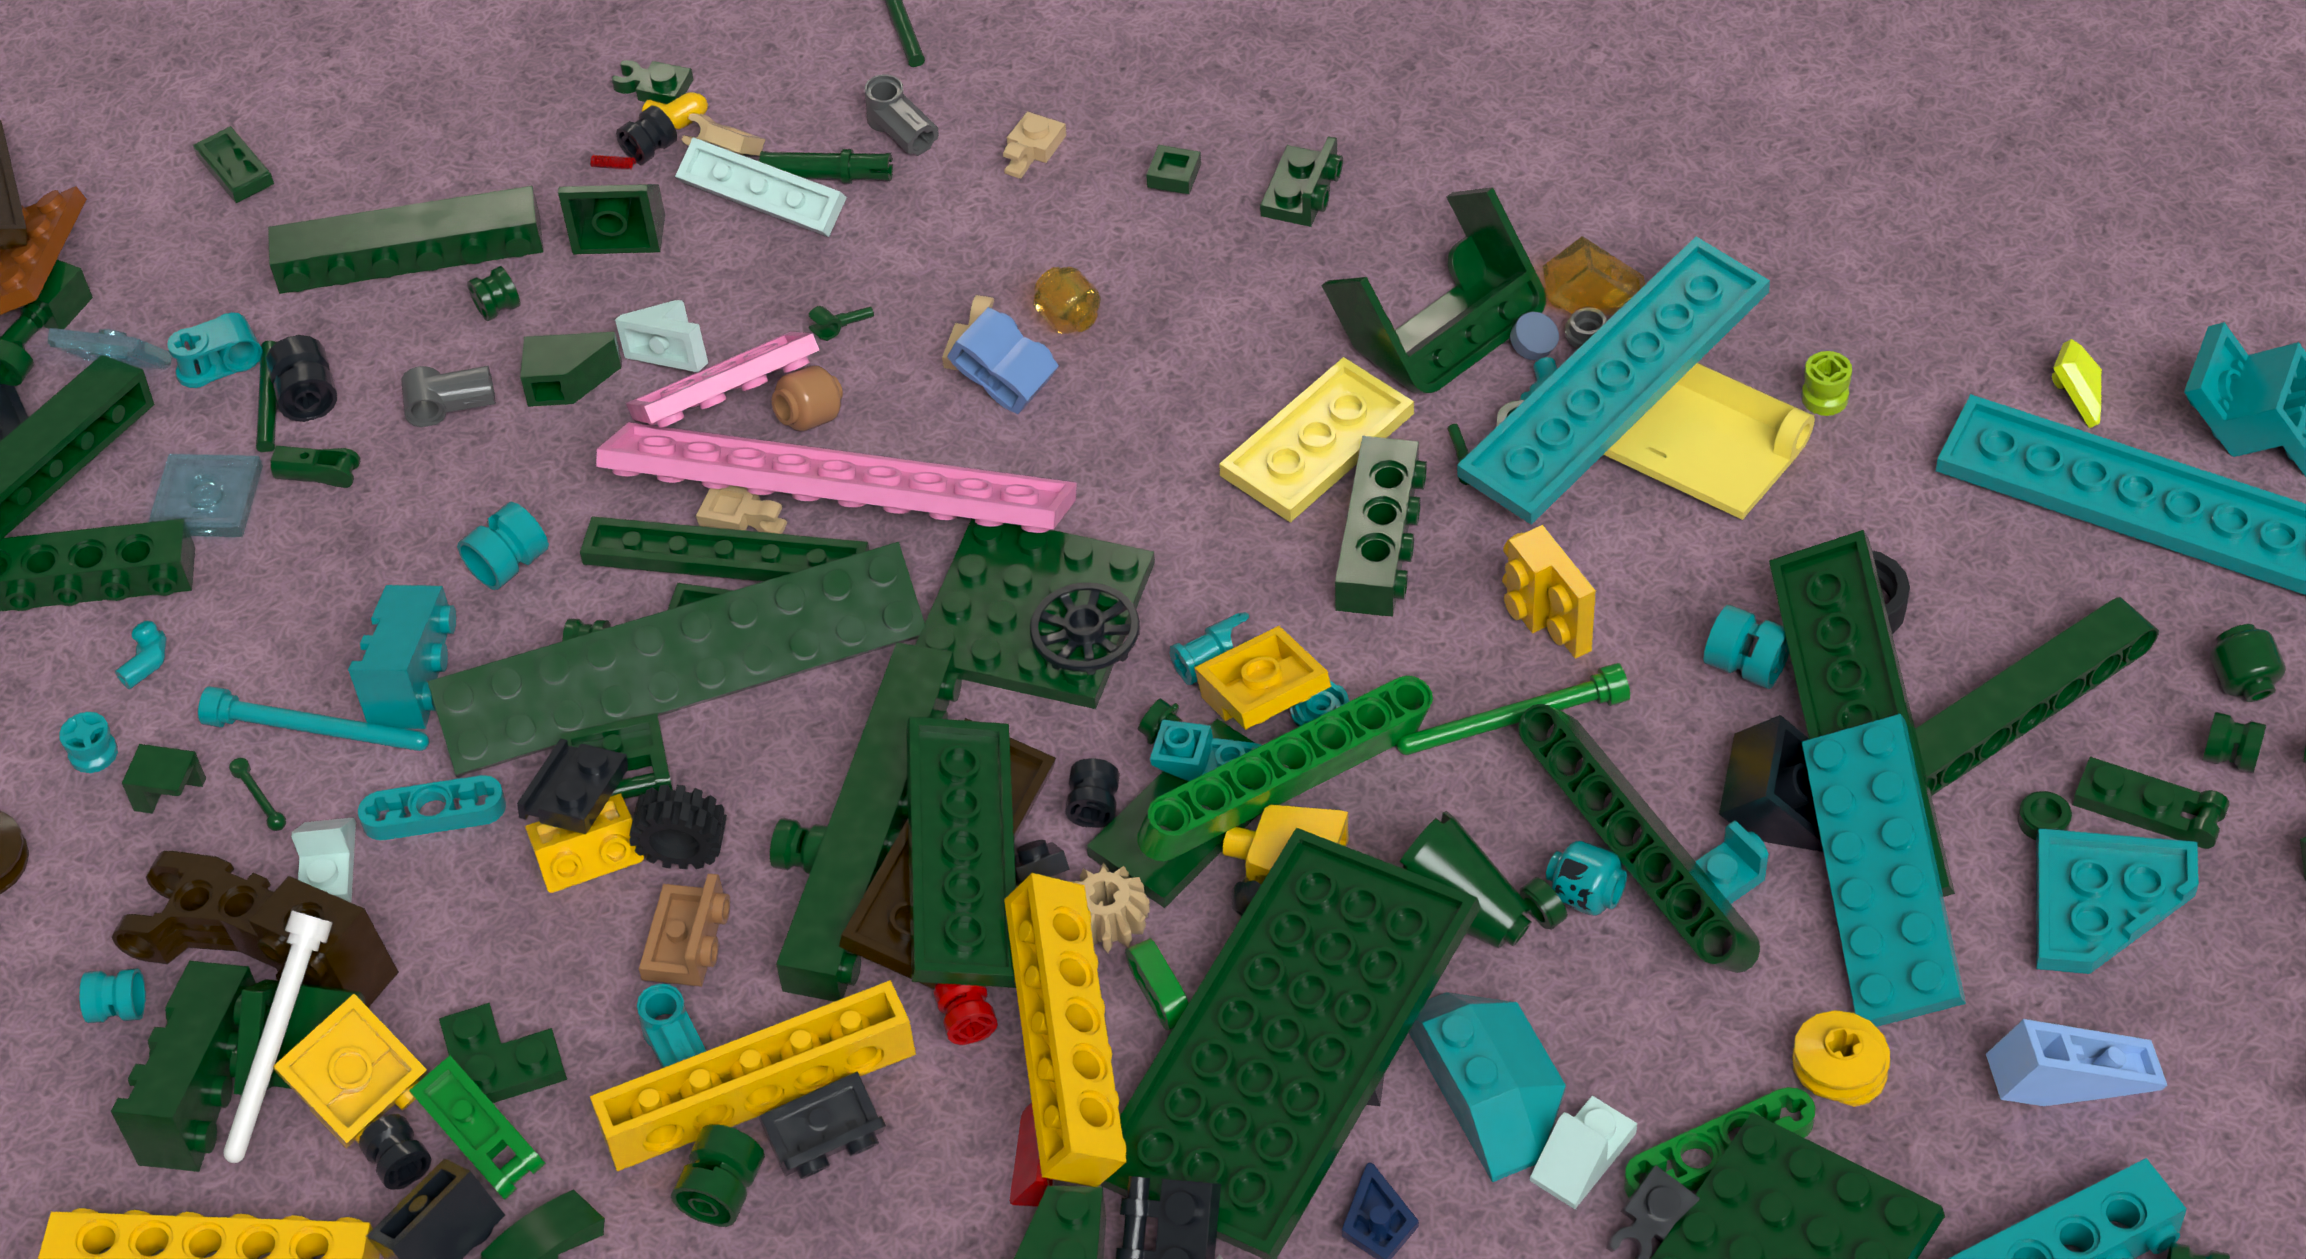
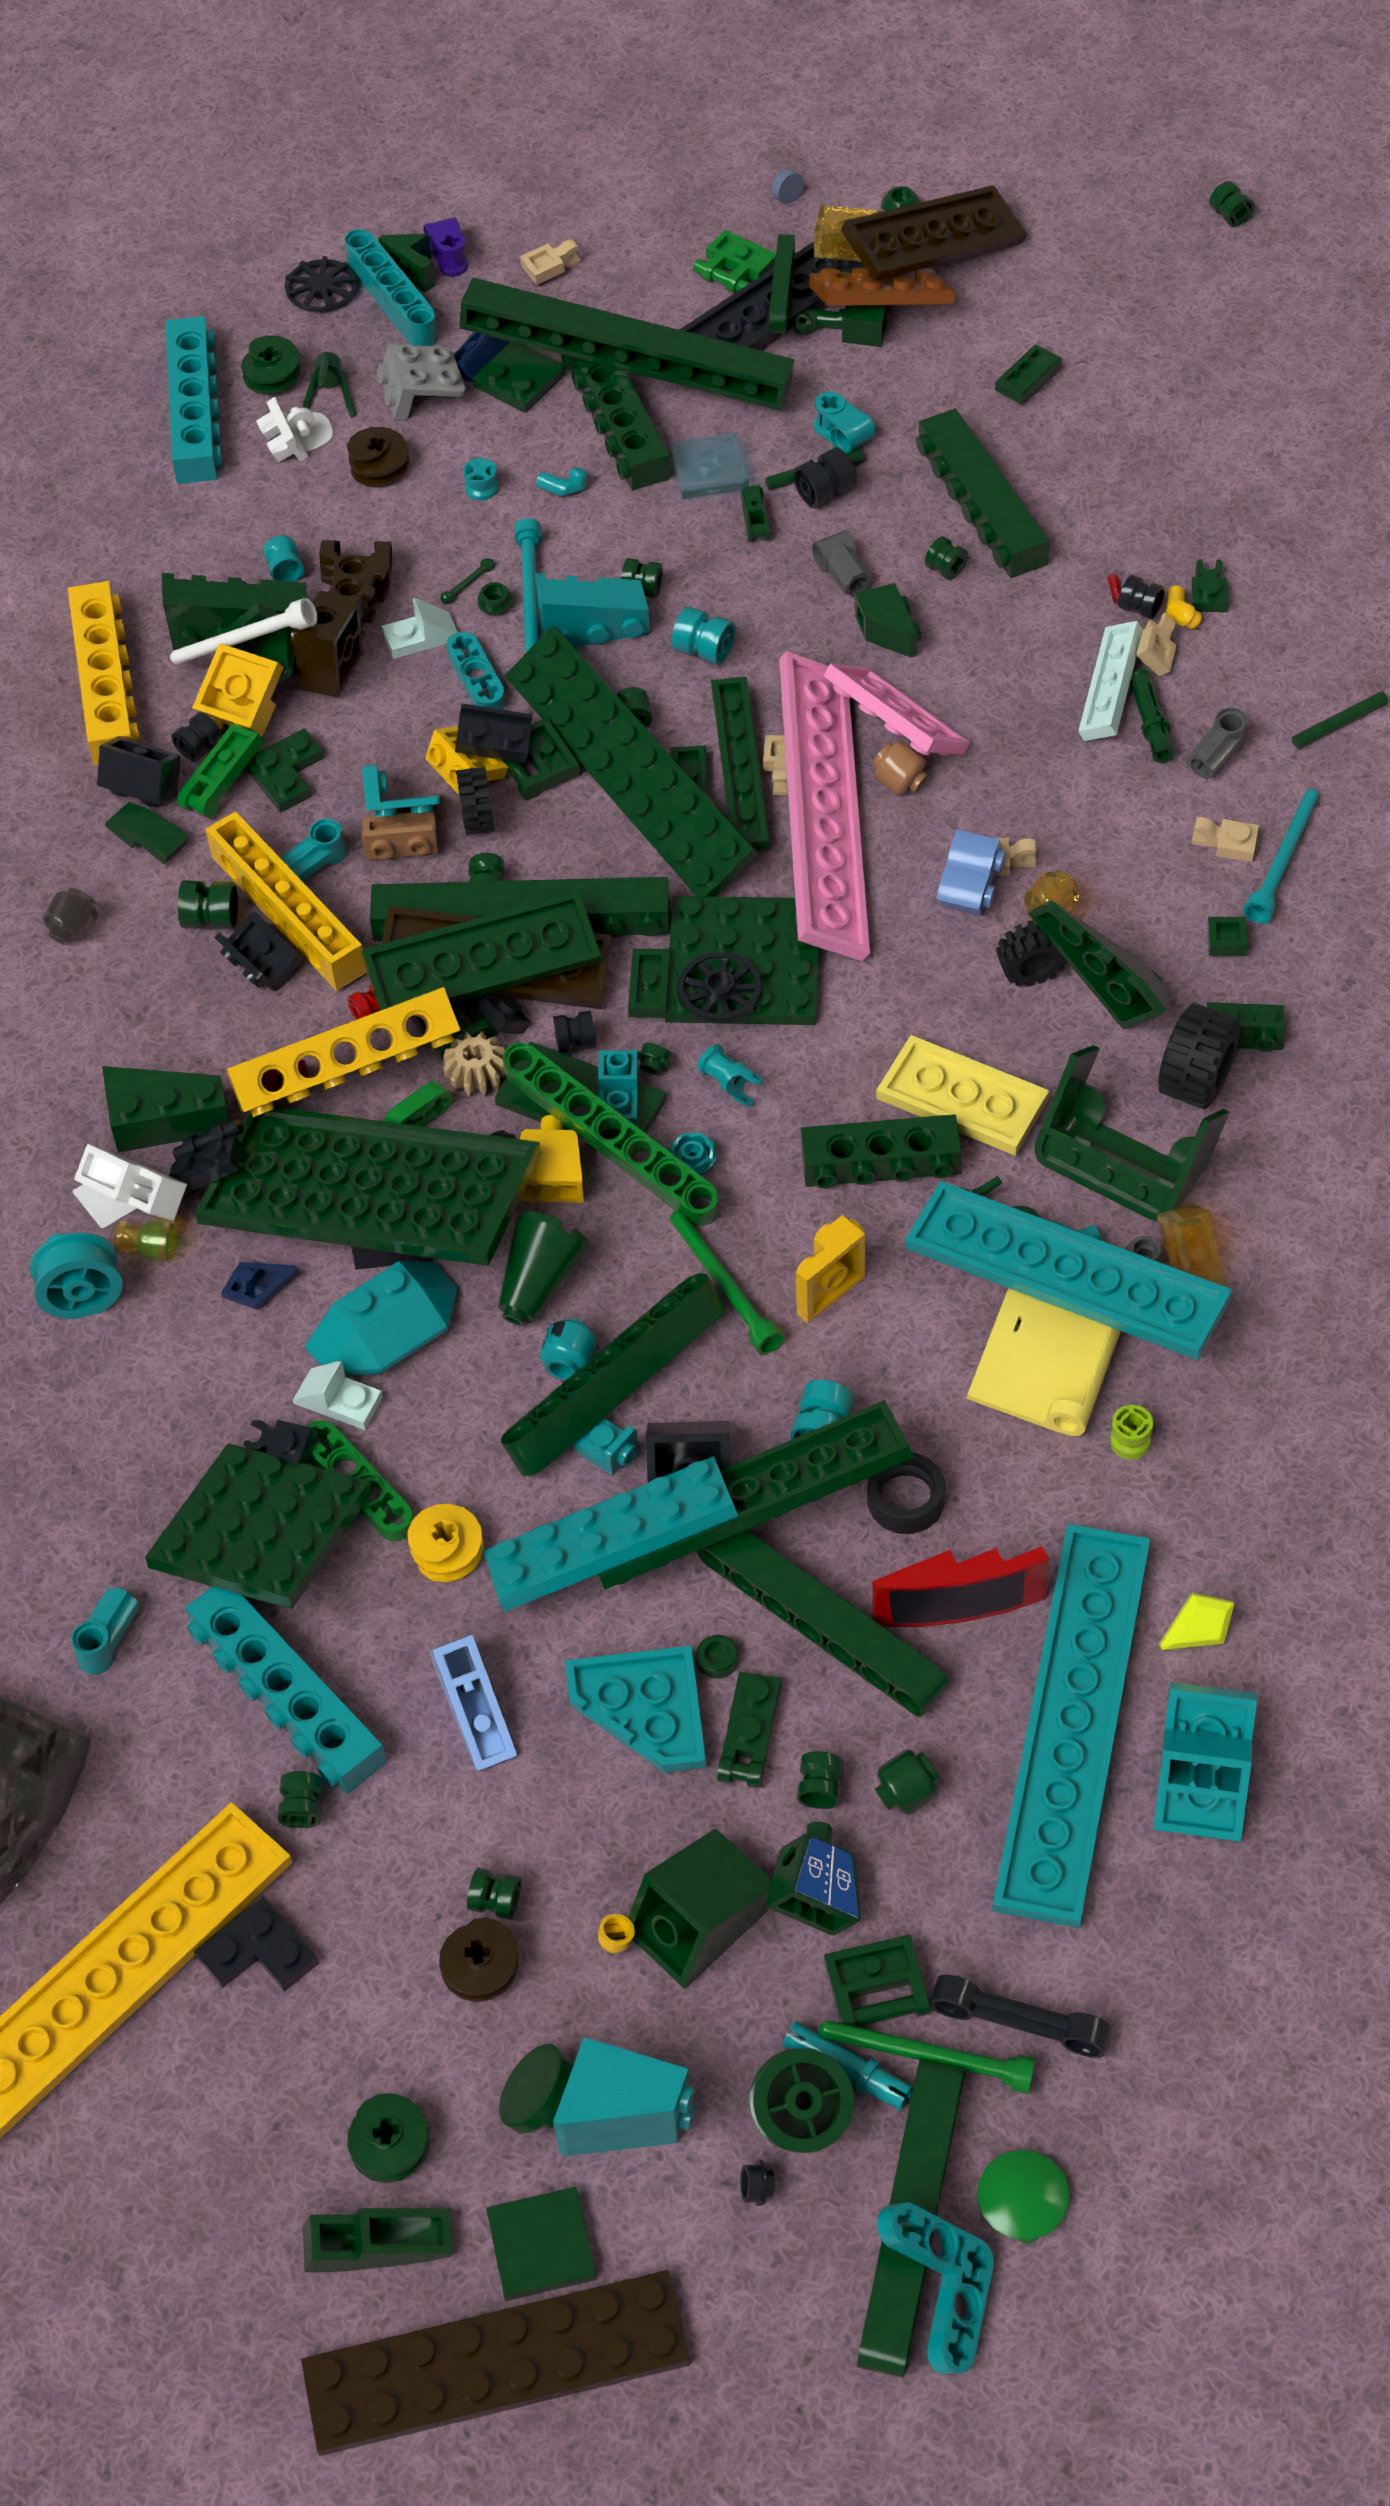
camera: 75 degrees right, 5 degrees up
(111, 344) = (810, 361): clear light blue plate -> none
(158, 772) = (457, 518): dark green panel -> none
(310, 754) = (494, 599): none -> dark green plate
(359, 598) = (649, 574): none -> dark green wheel
(613, 218) = (1044, 598): dark green slope -> none
(626, 919) = (376, 784): none -> teal bracket
(662, 337) = (937, 665): light aqua slope -> none
(829, 325) = (986, 764): dark green hand -> none
(1039, 705) = (649, 983): none -> dark green plate
(1139, 133) = (1261, 904): none -> teal piece
(1149, 325) = (1028, 956): none -> black tyre
(1218, 255) = (1114, 976): none -> dark green wedge
(1260, 678) = (696, 1103): yellow plate -> none
(1358, 207) = (1199, 1055): none -> black tyre
(1534, 336) = (1122, 1218): sand blue tile -> none
(1543, 903) = (538, 1326): dark green tile -> none
(2017, 554) = (953, 1592): none -> slope

